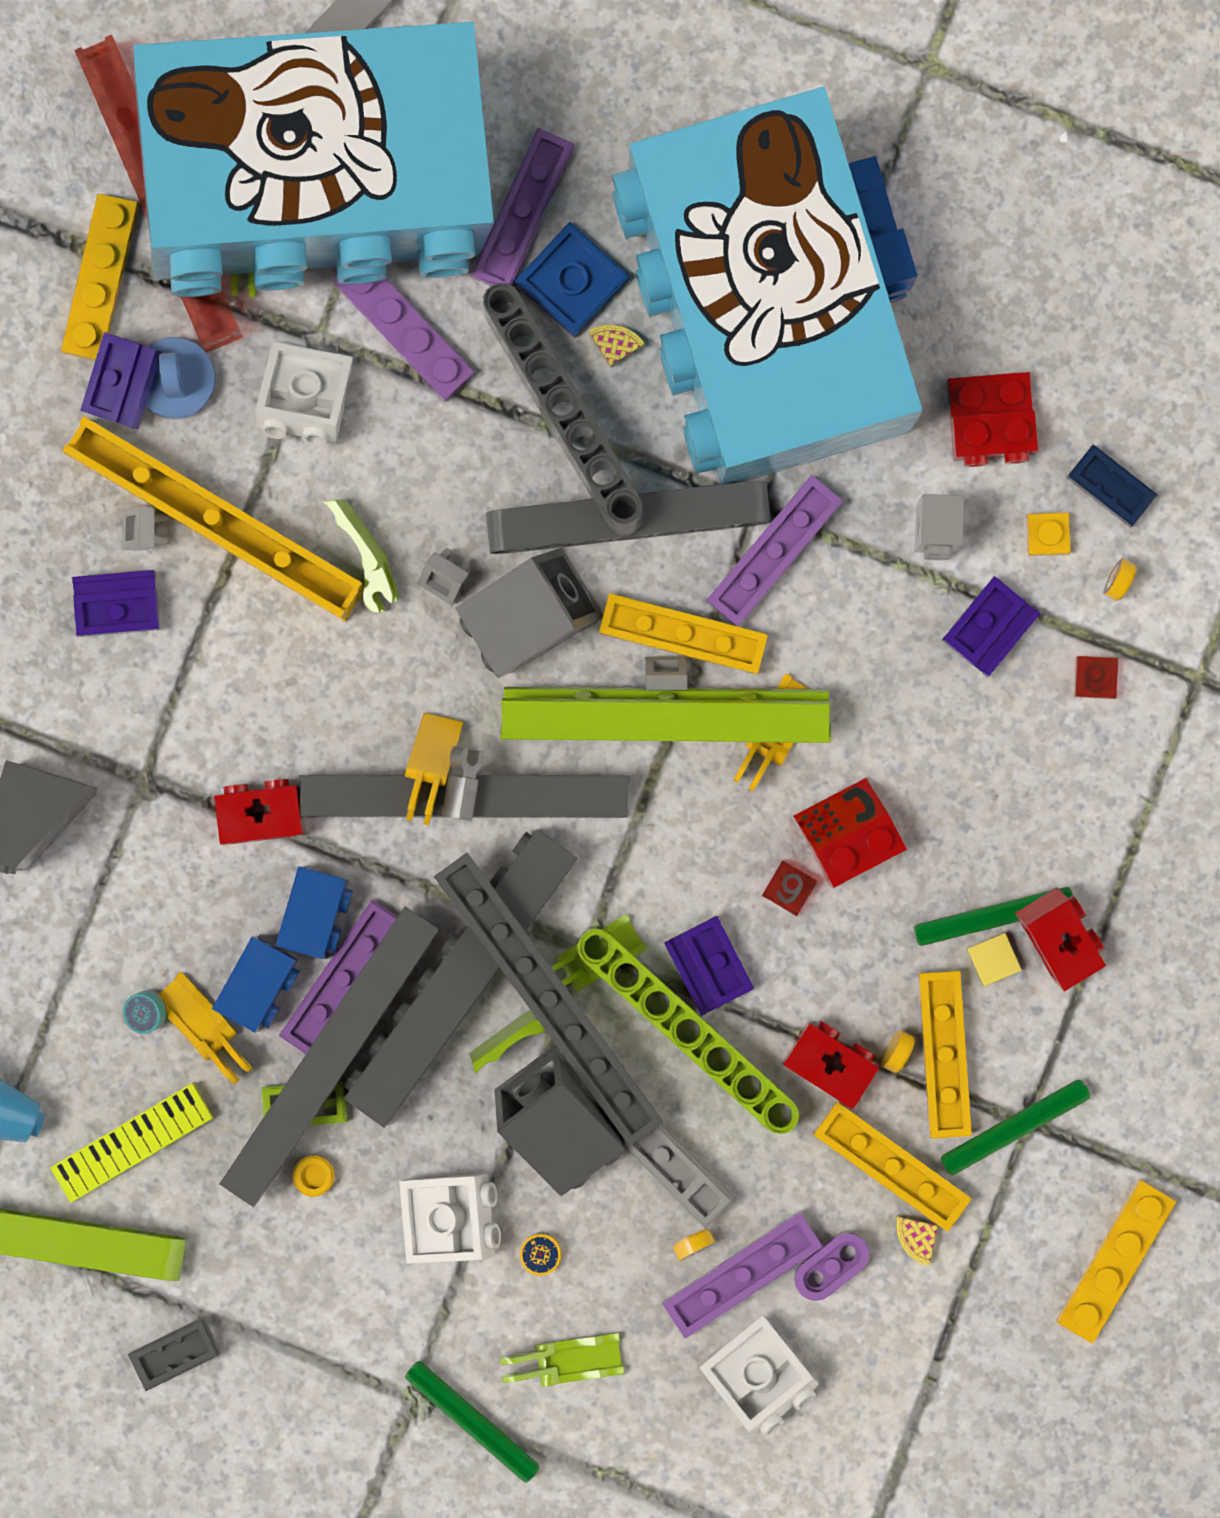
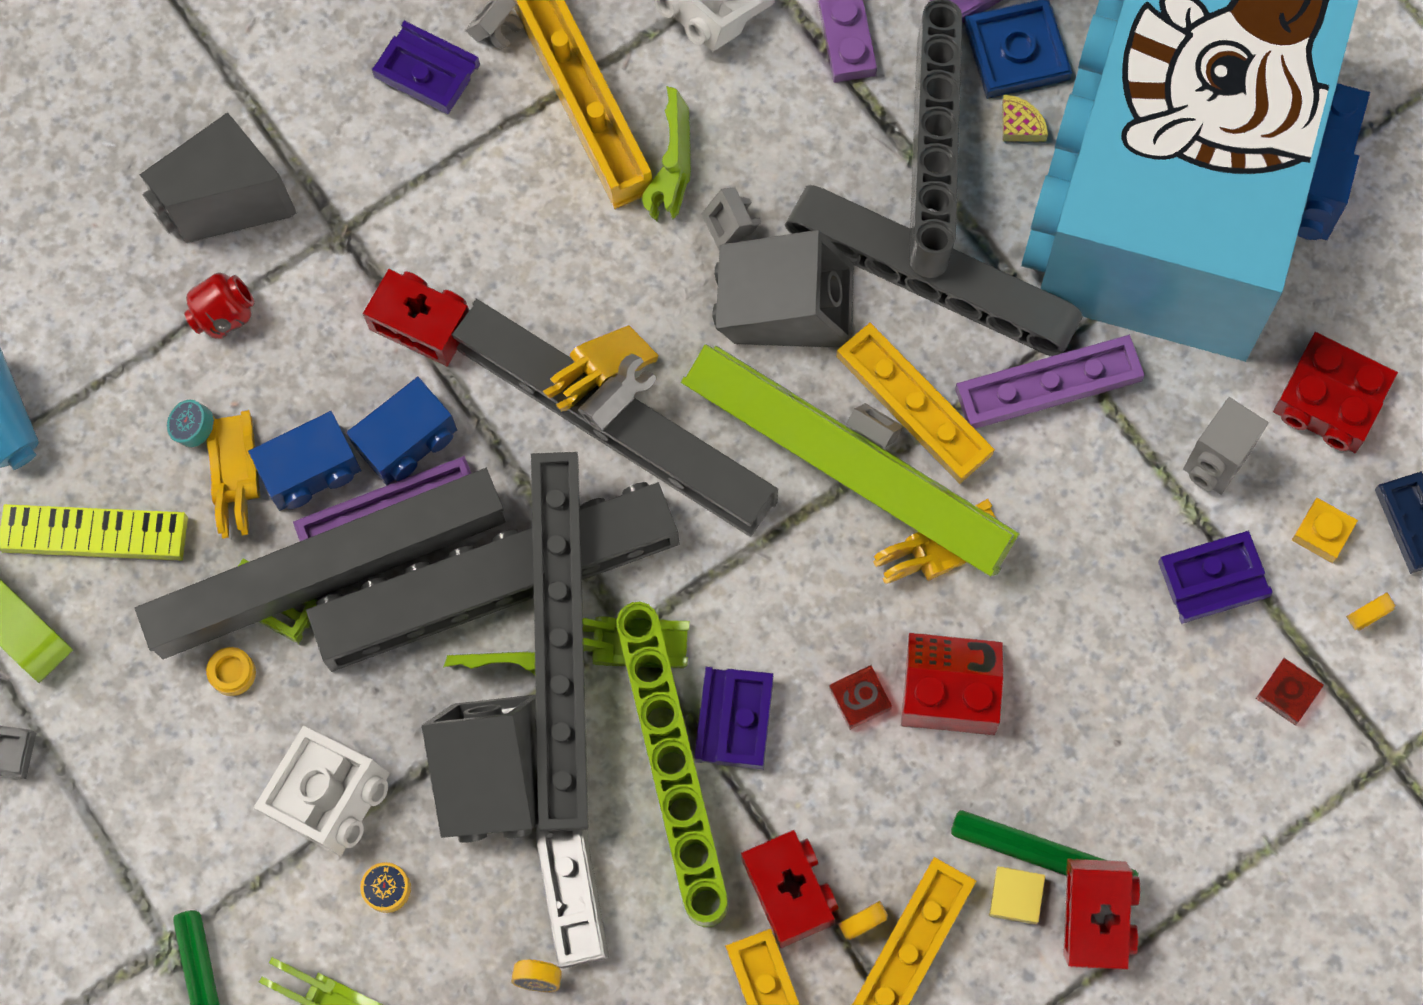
camera: 35 degrees right, 15 degrees down
(98, 907) = (218, 305): none -> red head

